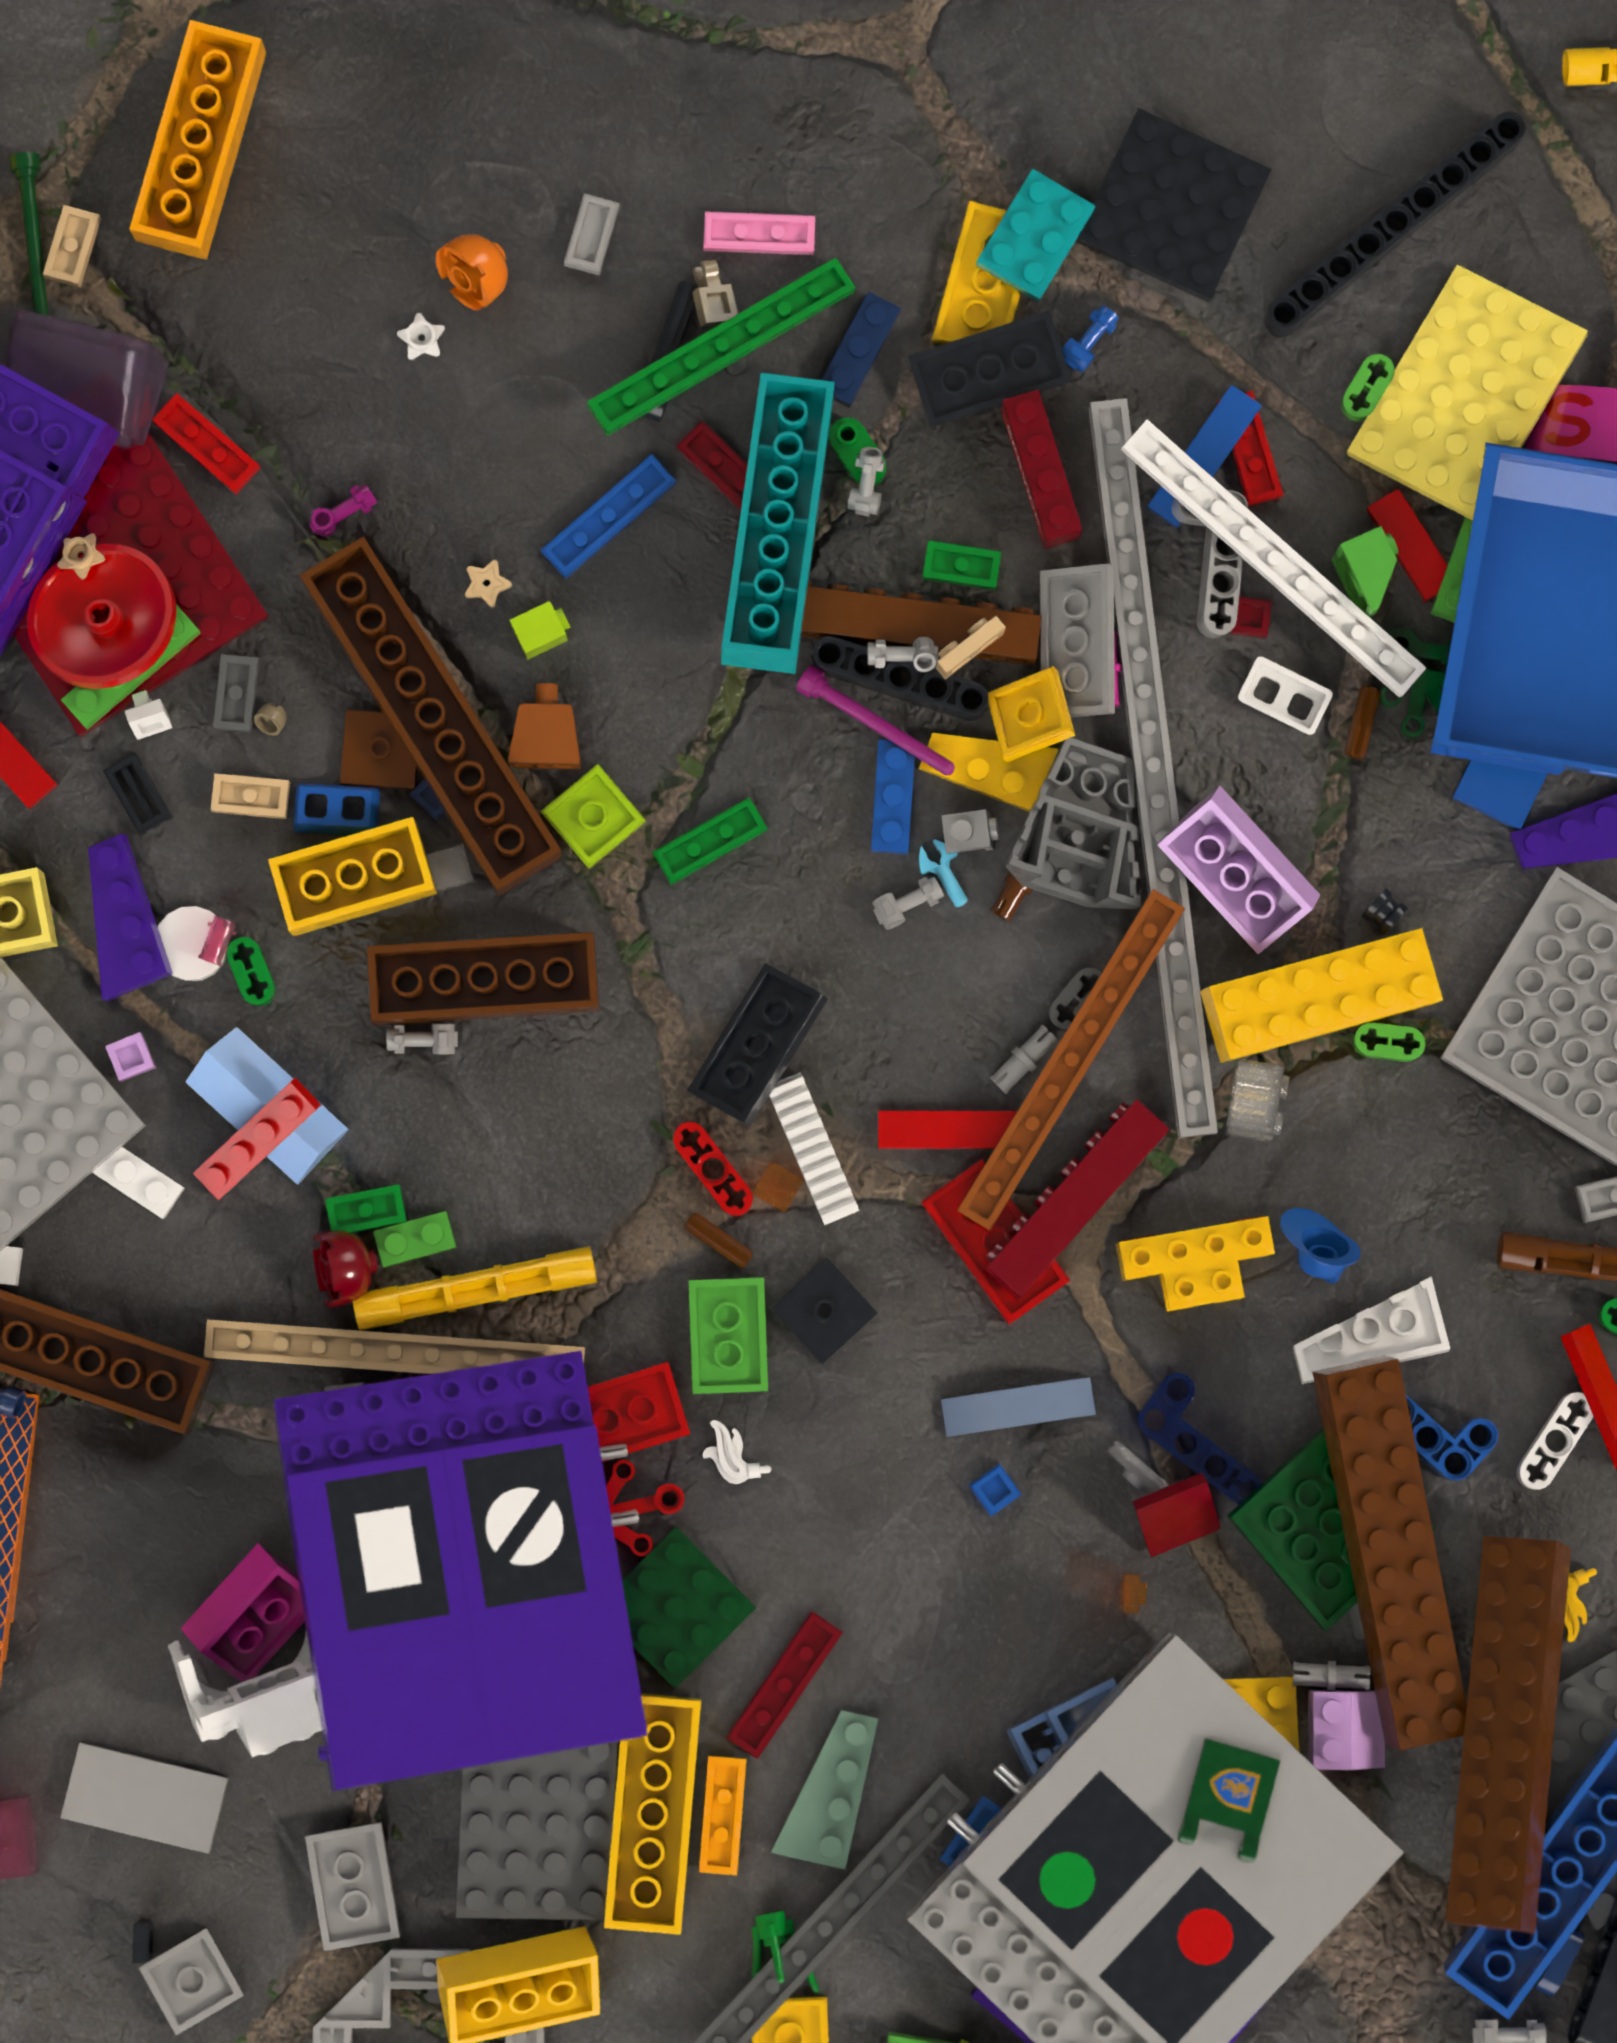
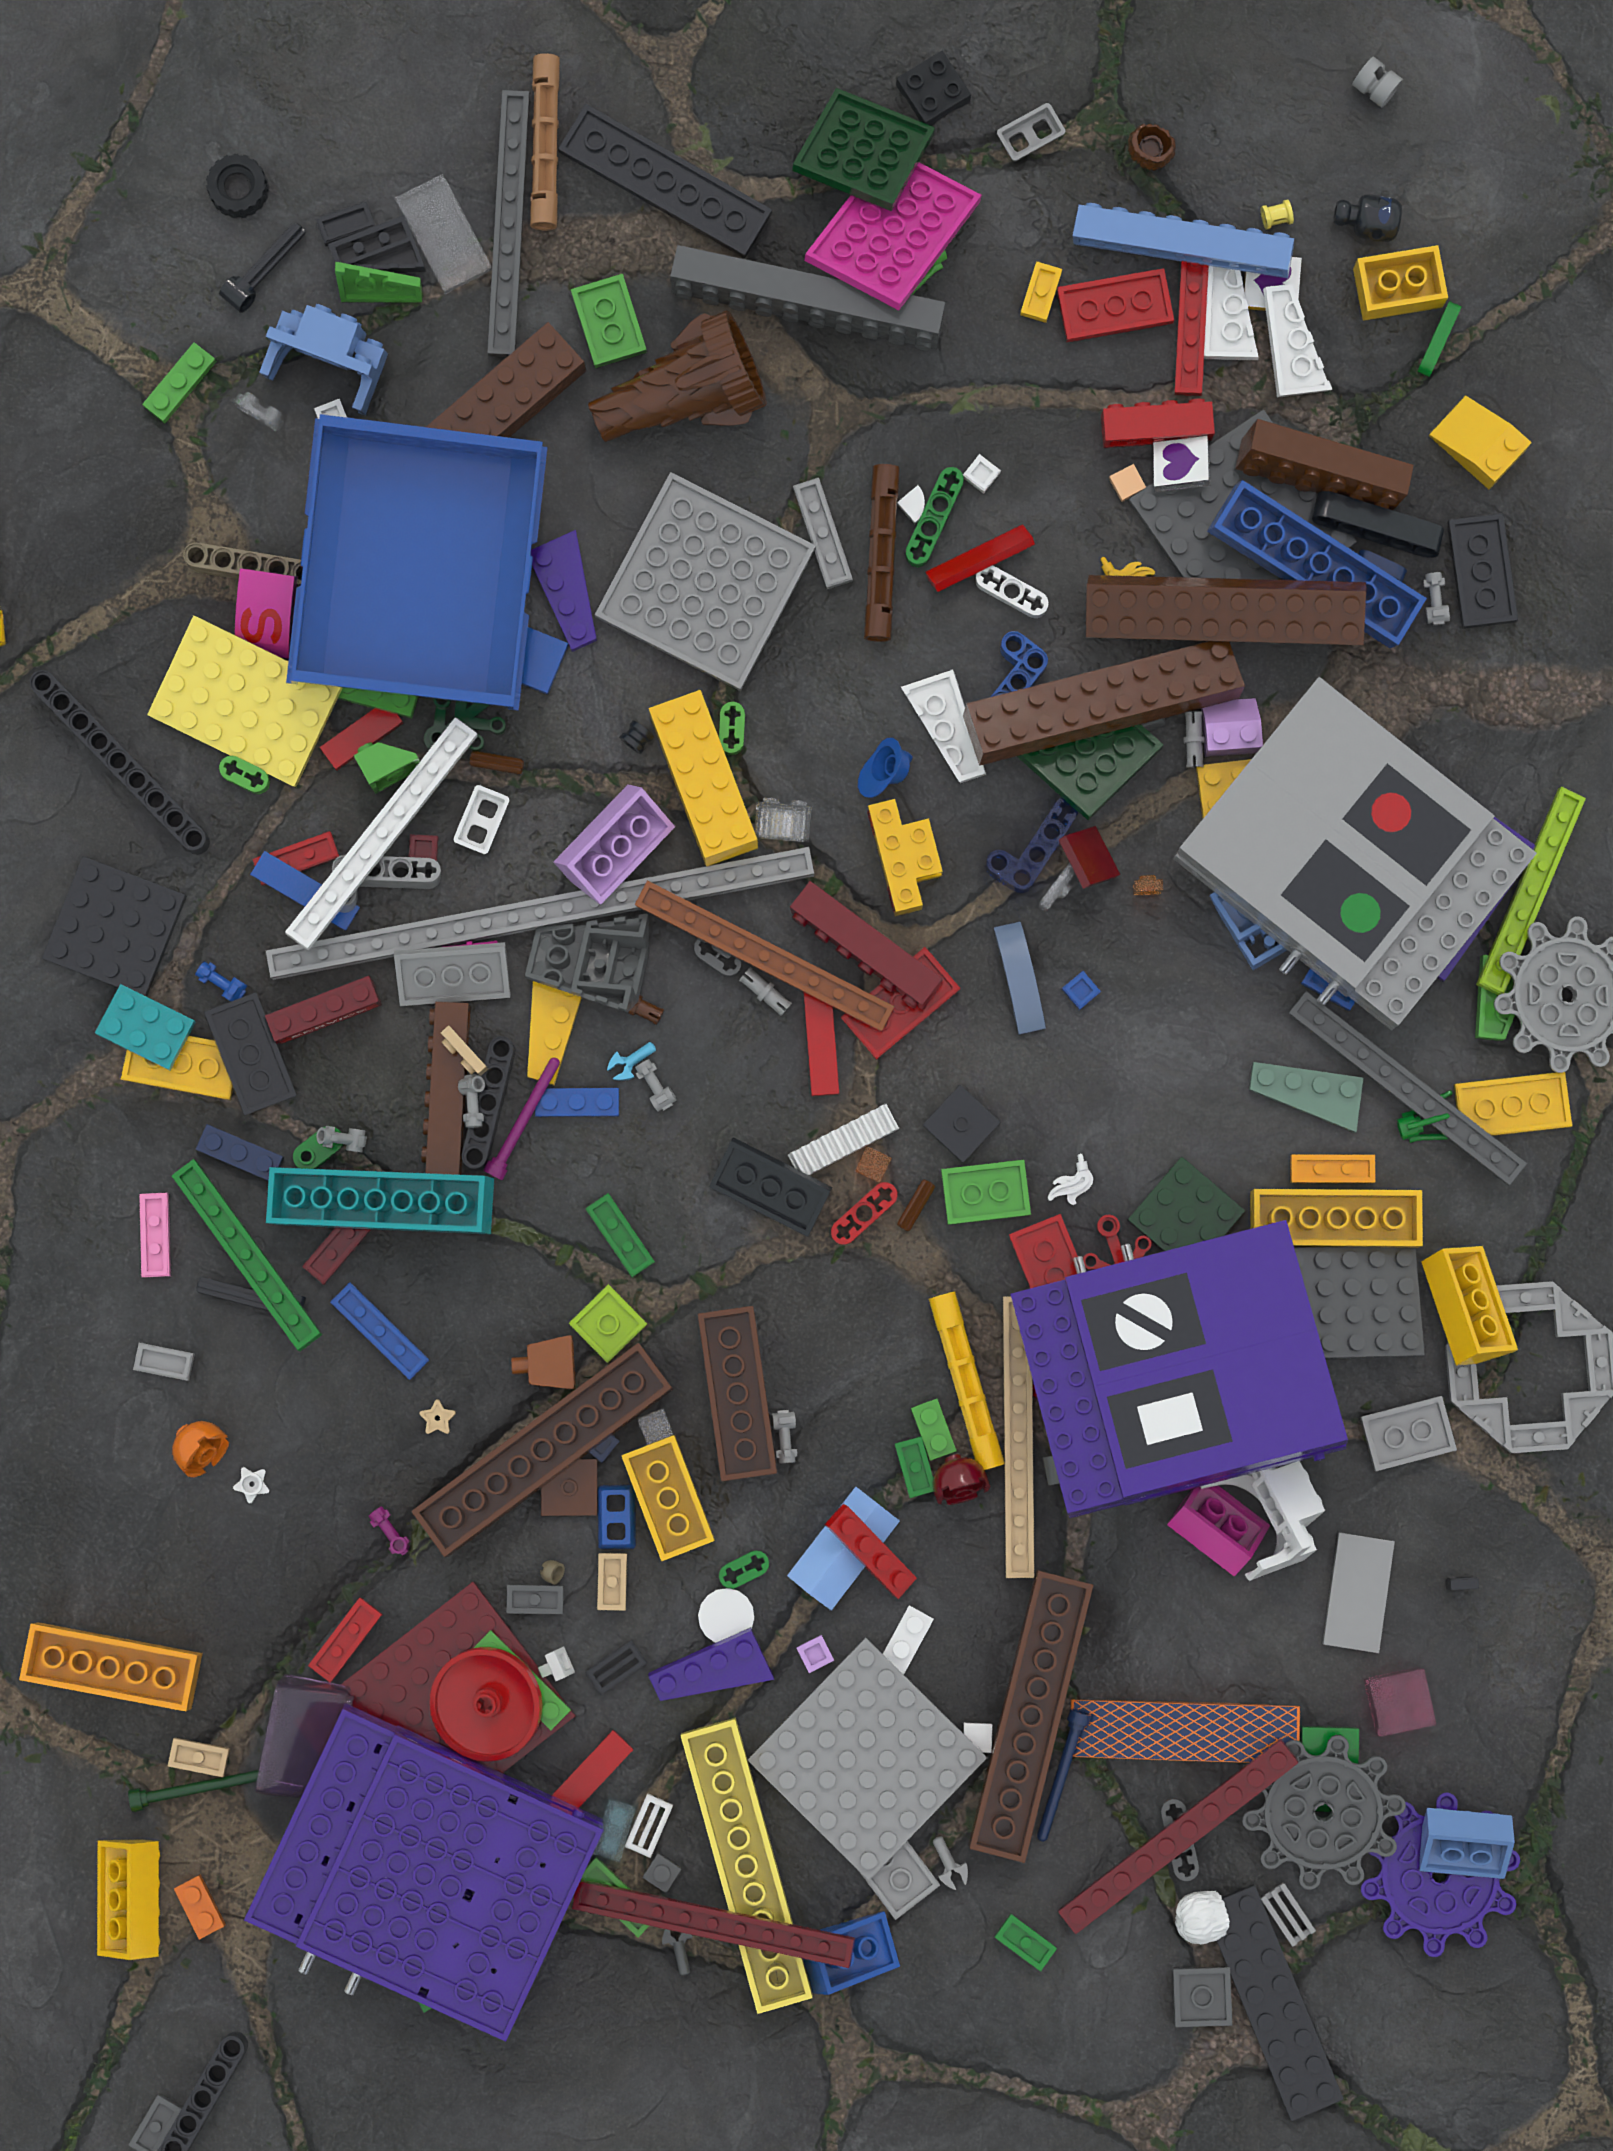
camera: 90 degrees left, 0 degrees up
(73, 548) = (434, 1730): tan plate -> none
(191, 1981) = (1487, 1545): light grey plate -> none
(217, 940) = (723, 1595): clear pink pin -> none
(540, 629) = (470, 1374): lime brick -> none
(712, 300) = (210, 1264): dark tan plate -> none
(784, 1685) = (1235, 1132): dark red tile -> none
(961, 565) = (399, 1064): green plate -> none
(970, 831) = (600, 1043): light grey bracket -> none
(1030, 714) = (509, 1004): yellow tile -> none
(1230, 1791) = (1287, 801): dark green flag -> none

